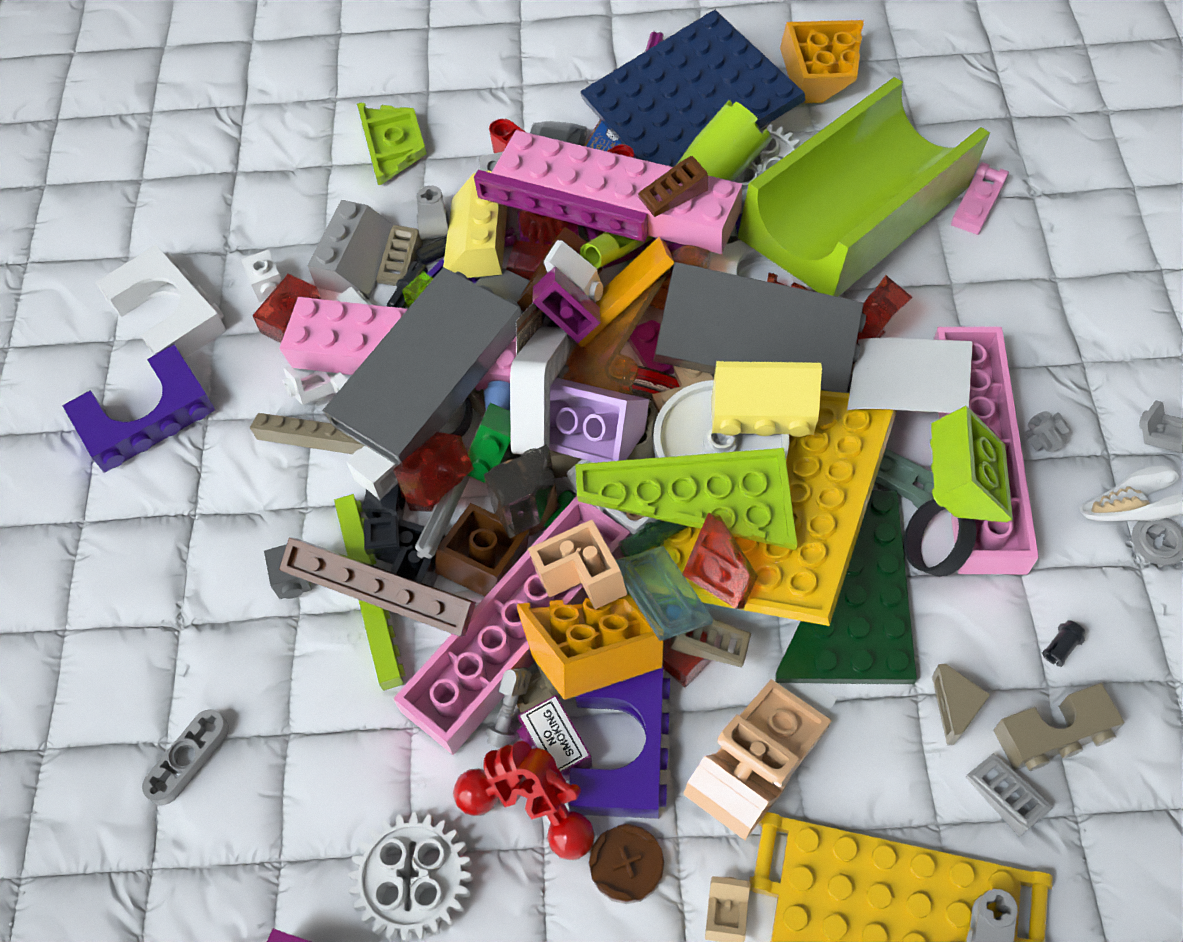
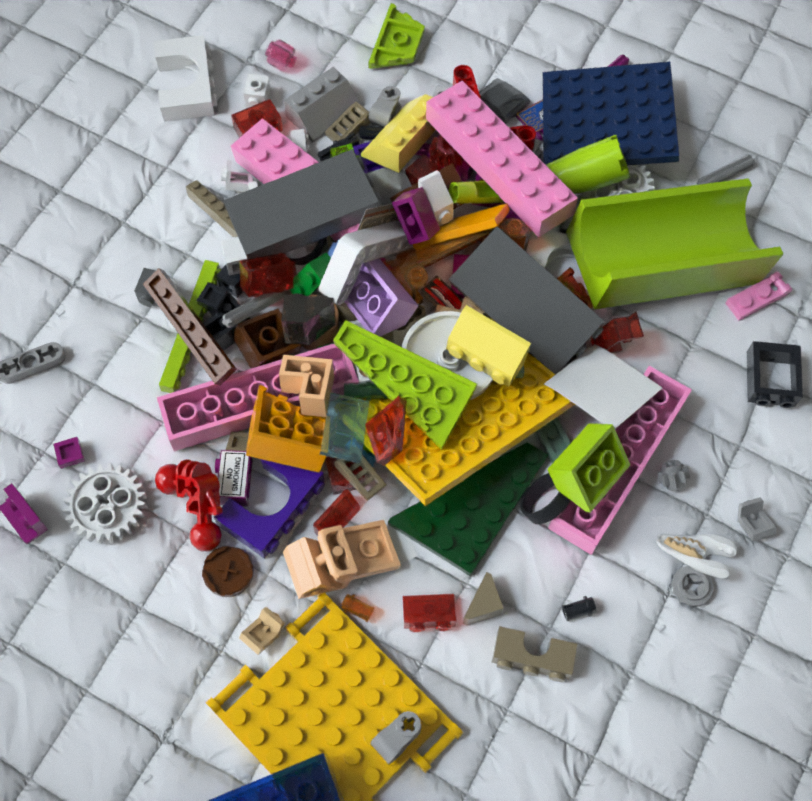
camera: 25 degrees right, 5 degrees up
(115, 441) = (156, 148): dark purple arch -> none
(265, 221) = (281, 55): none -> clear pink head
(316, 840) = (69, 452): none -> magenta plate
(513, 684) = (228, 430): light grey hinge -> none
(562, 205) = (458, 148): magenta tile -> none
(687, 172) = (537, 183): reddish brown slope -> none
(712, 710) = (338, 513): none -> clear red slope
(817, 805) = (357, 607): none -> clear orange pin
(822, 56) = (723, 135): light orange wedge -> none
(849, 94) = (728, 170): none -> light grey axle
(903, 755) = (429, 612): none -> clear red bracket
(1008, 812) = (475, 693): light grey slope -> none
(1064, 237) = (777, 354): none -> black window

